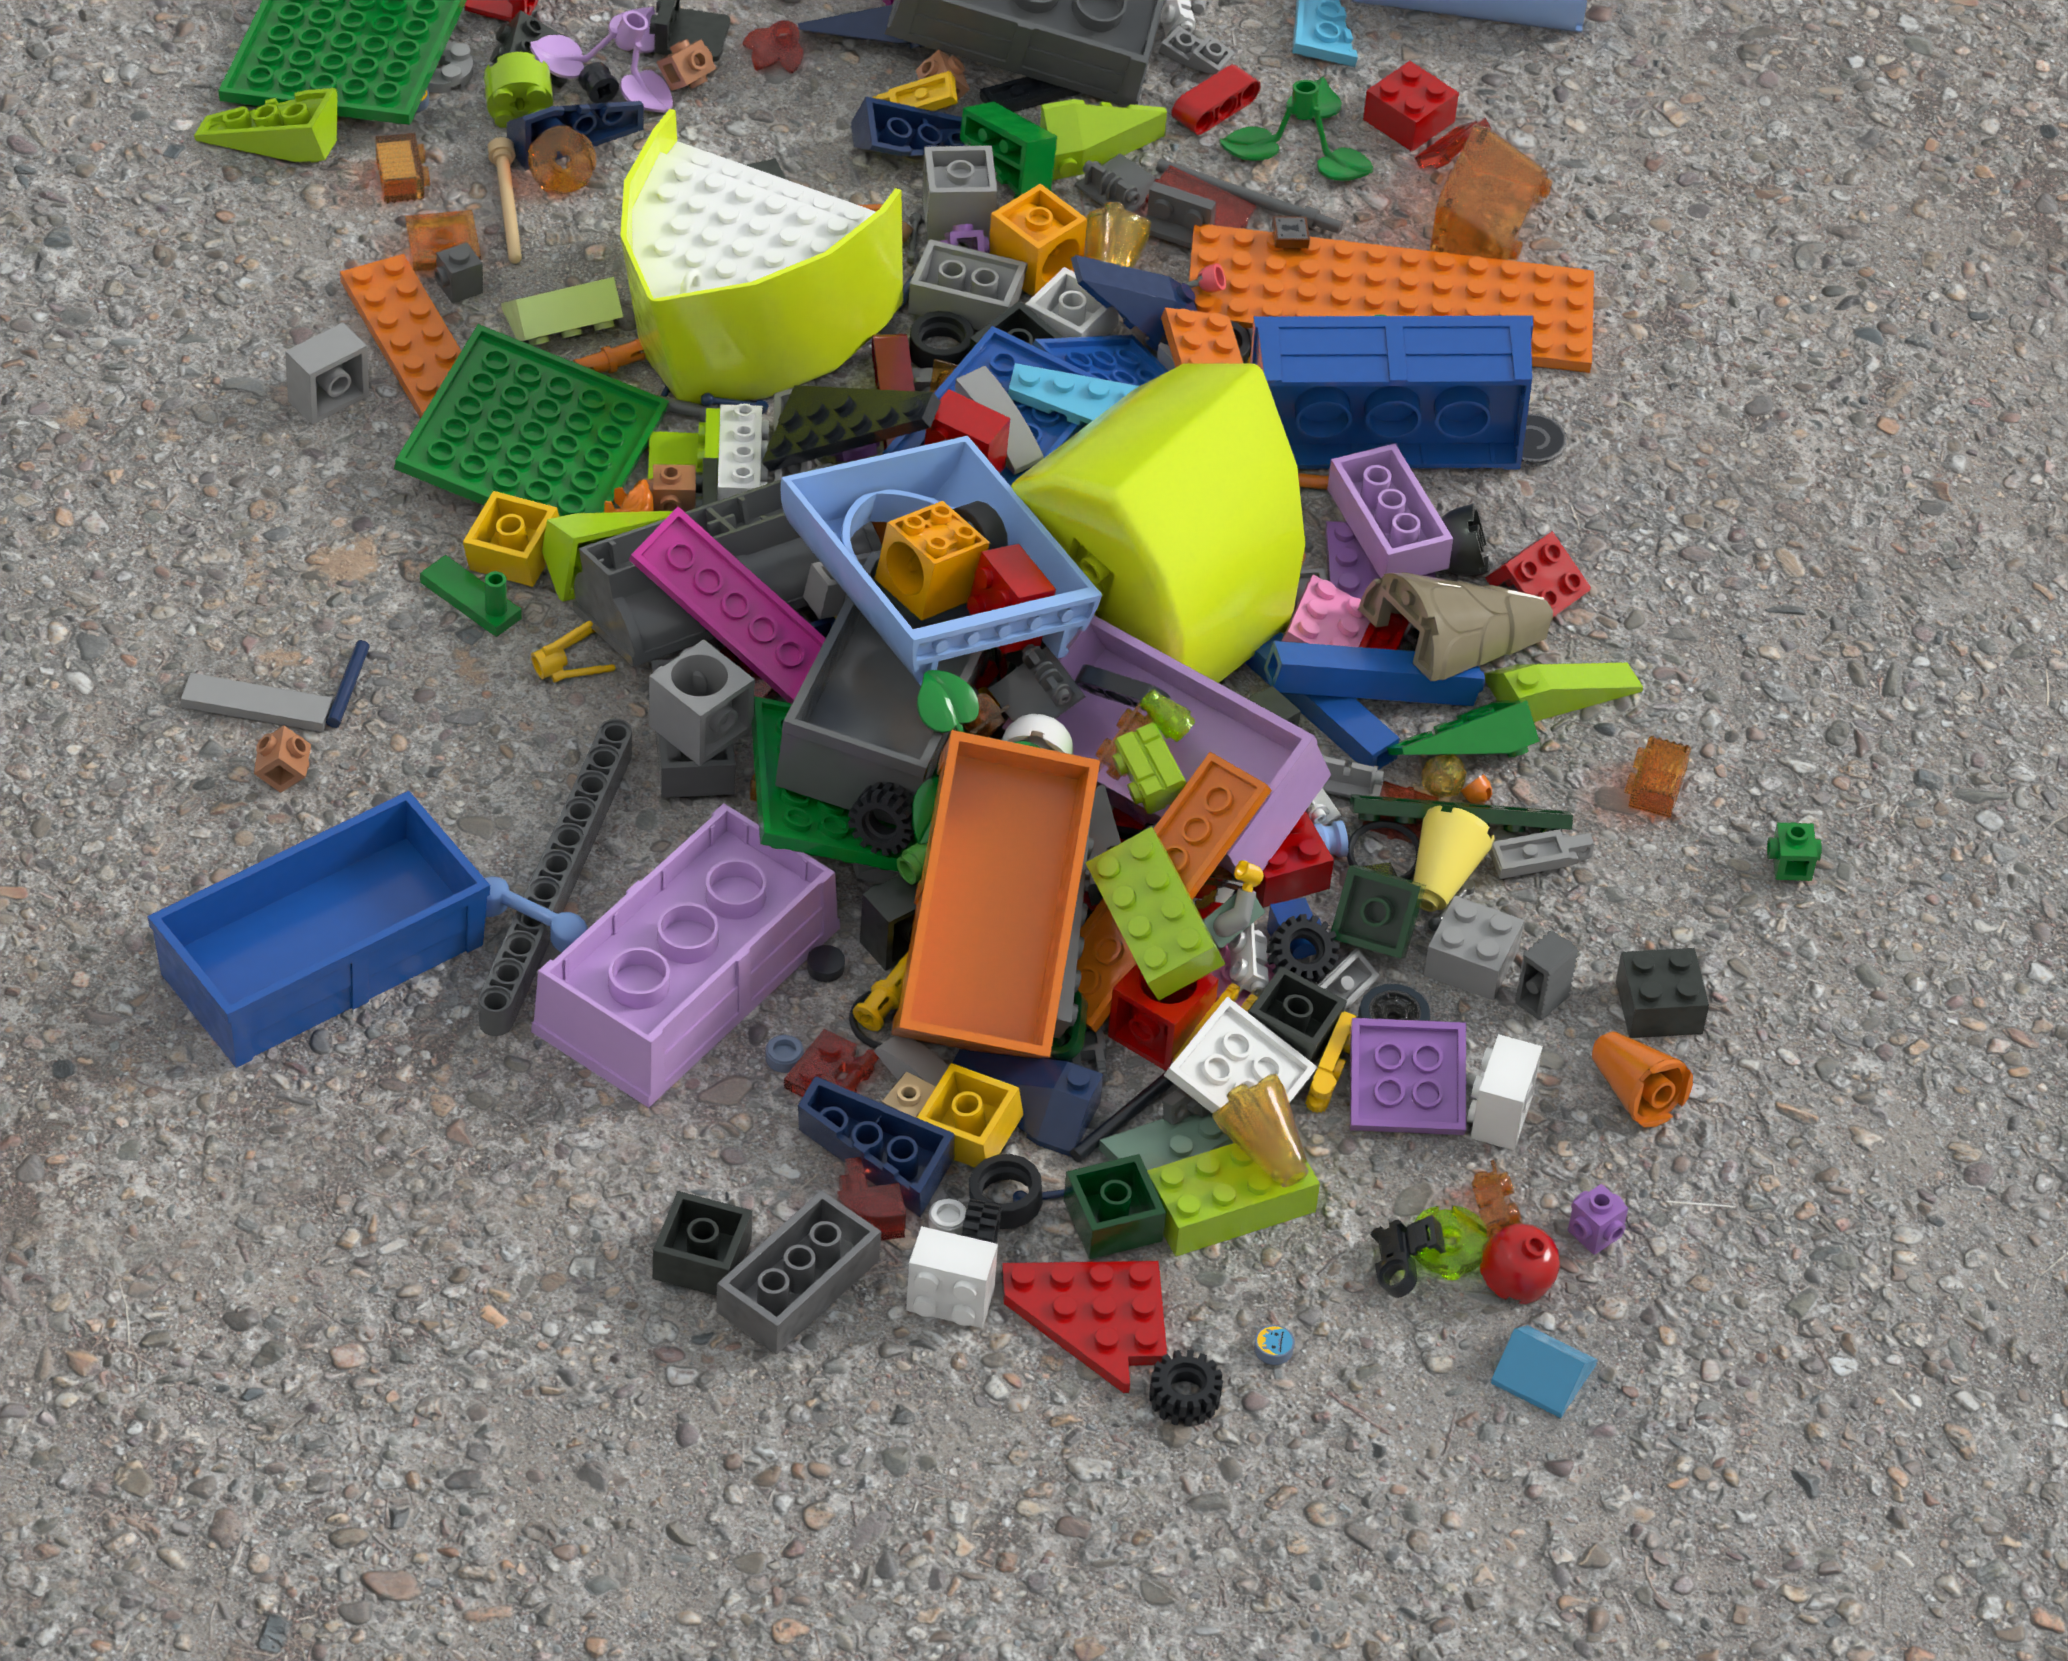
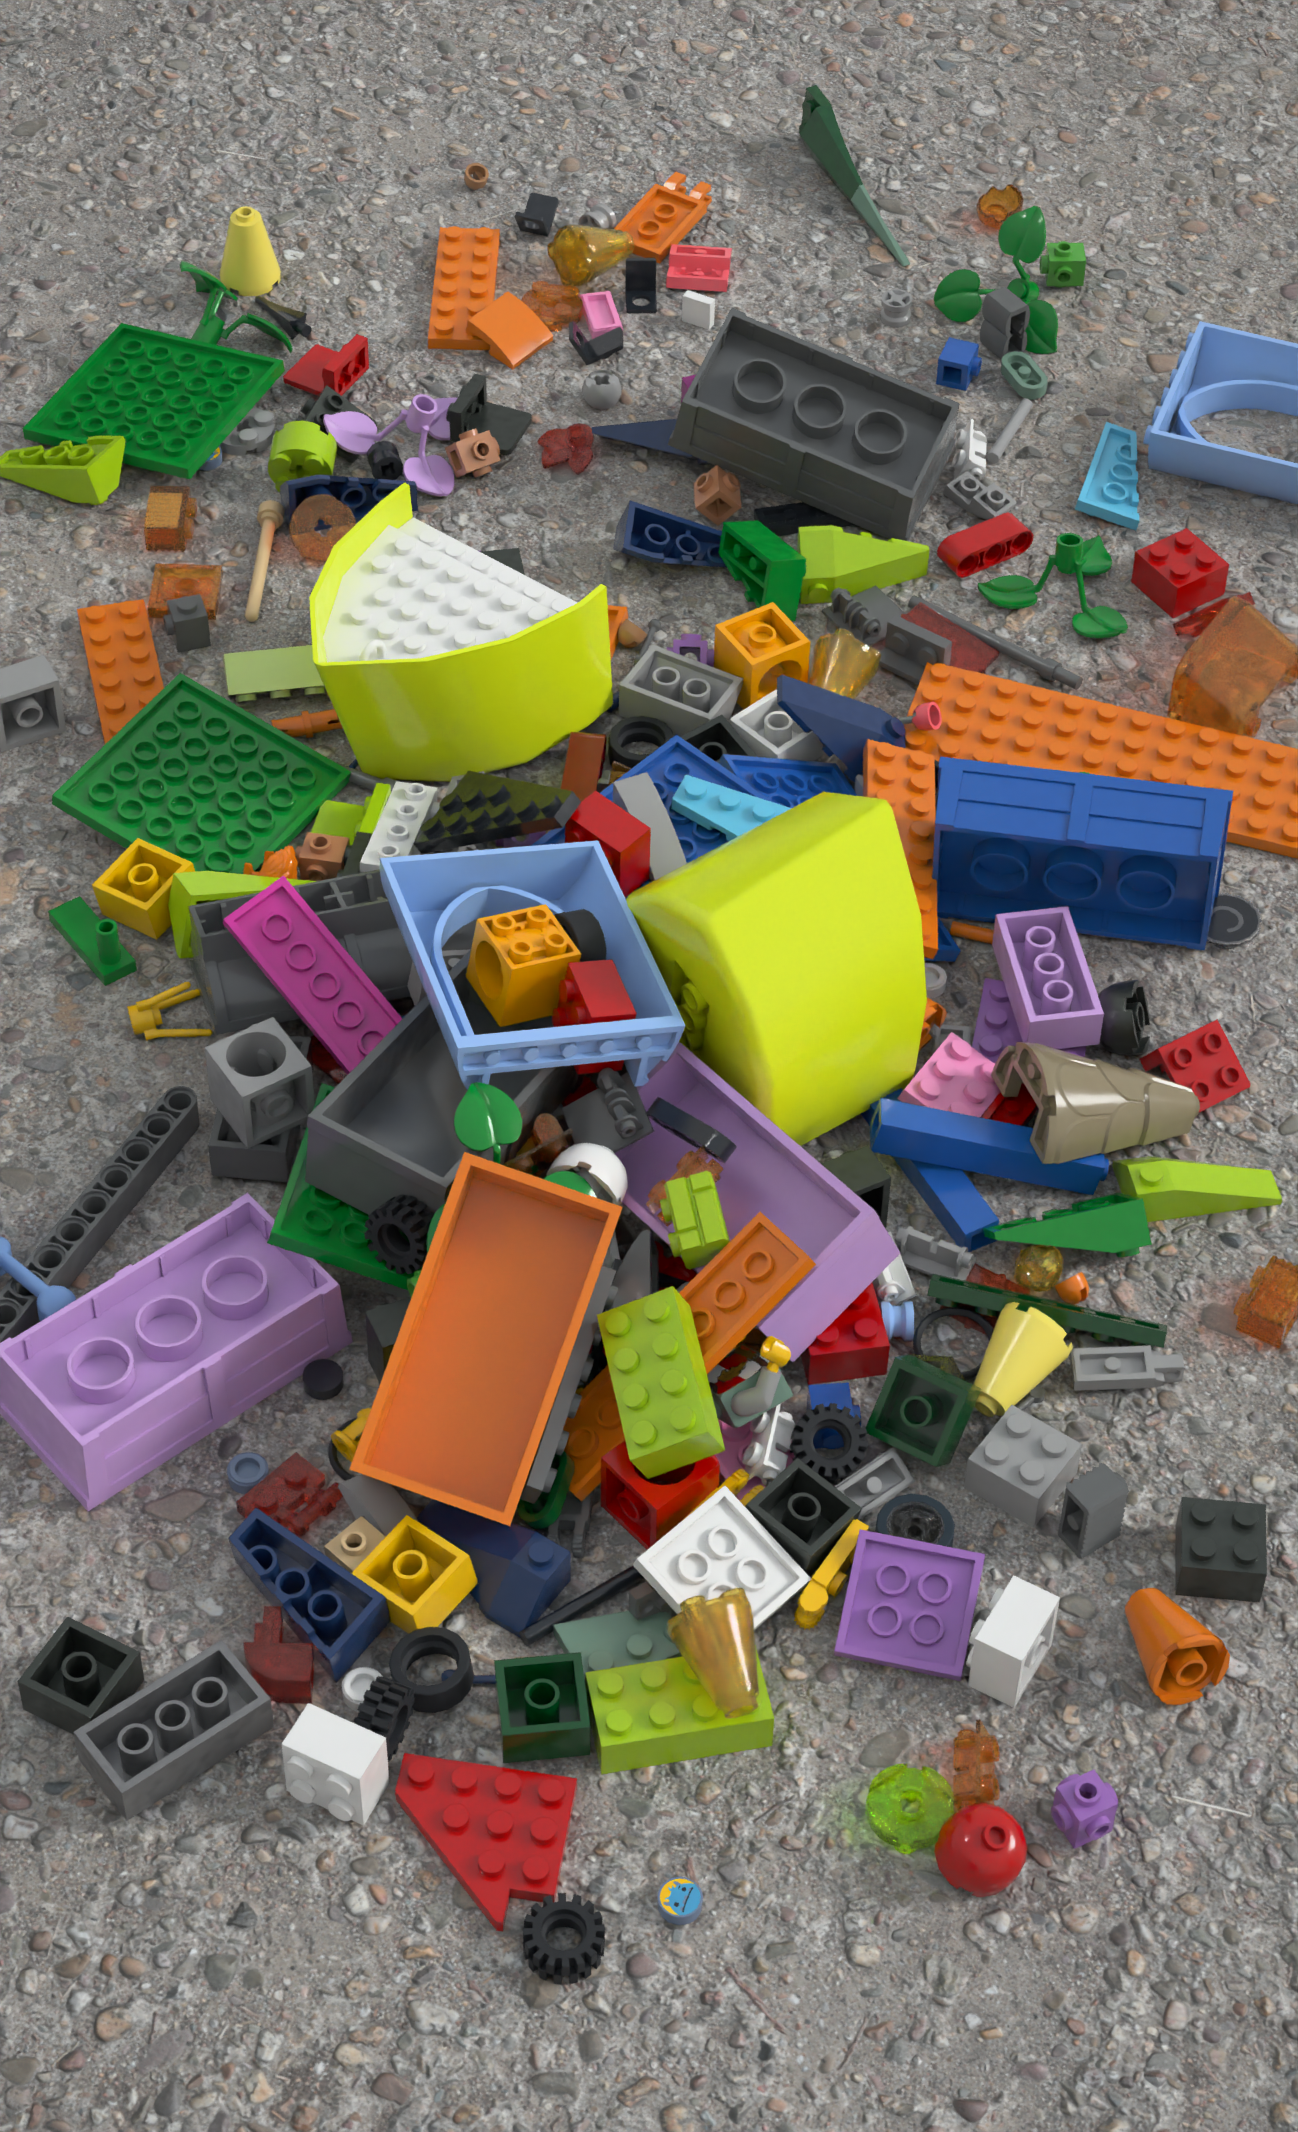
camera: 15 degrees right, 0 degrees up
(708, 399) = (388, 775): dark blue hinge -> none
(927, 93) = (694, 506): yellow hinge -> none
(958, 189) = (695, 597): light grey brick -> none
(1170, 717) = (726, 1165): clear neon green cone -> none
(1290, 232) = (1021, 680): tile -> none
(1400, 1244) = (851, 1802): black piece -> none
(1542, 1370) = (979, 1982): dark azure slope -> none

